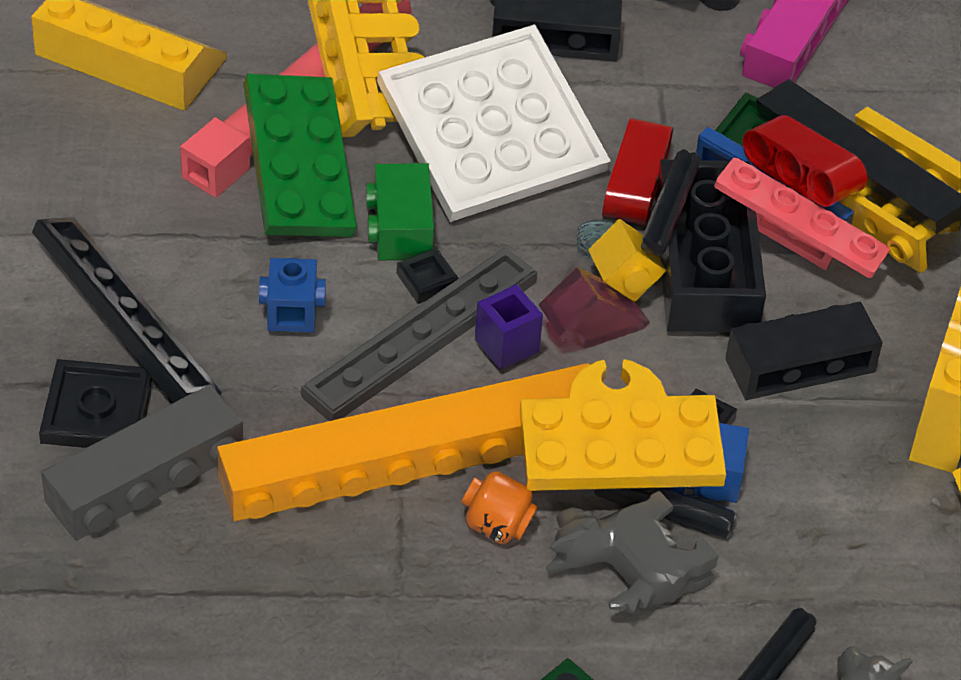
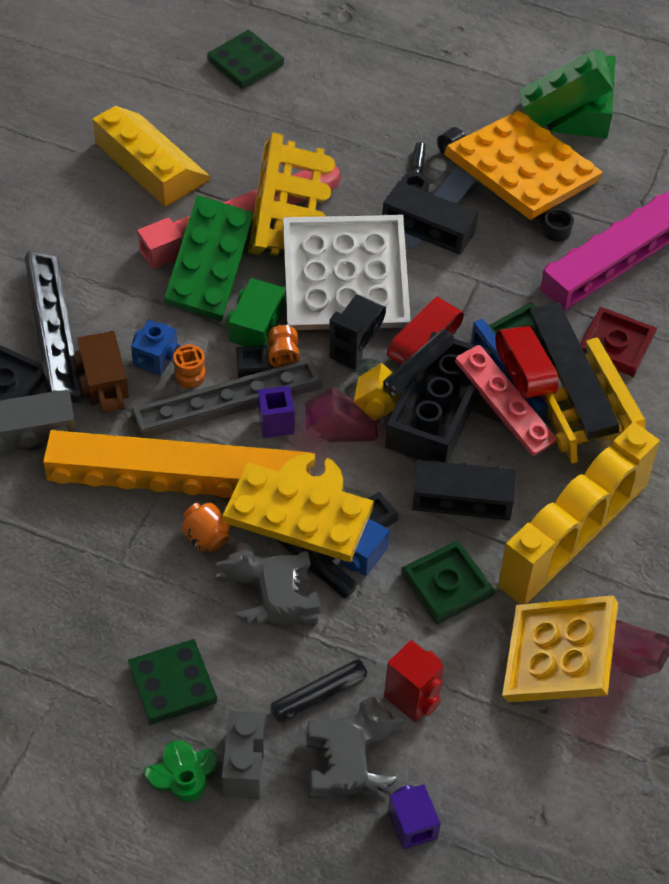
camera: 25 degrees right, 5 degrees up
(235, 348) = (103, 370): none -> reddish brown brick
(351, 306) = (189, 366): none -> orange wheel
(461, 241) = (283, 345): none -> orange wheel
(551, 193) = (354, 329): none -> black tile
(845, 474) = (447, 582): none -> dark green tile
(889, 96) = (622, 338): none -> dark red tile
(896, 607) = (414, 681): none -> red brick

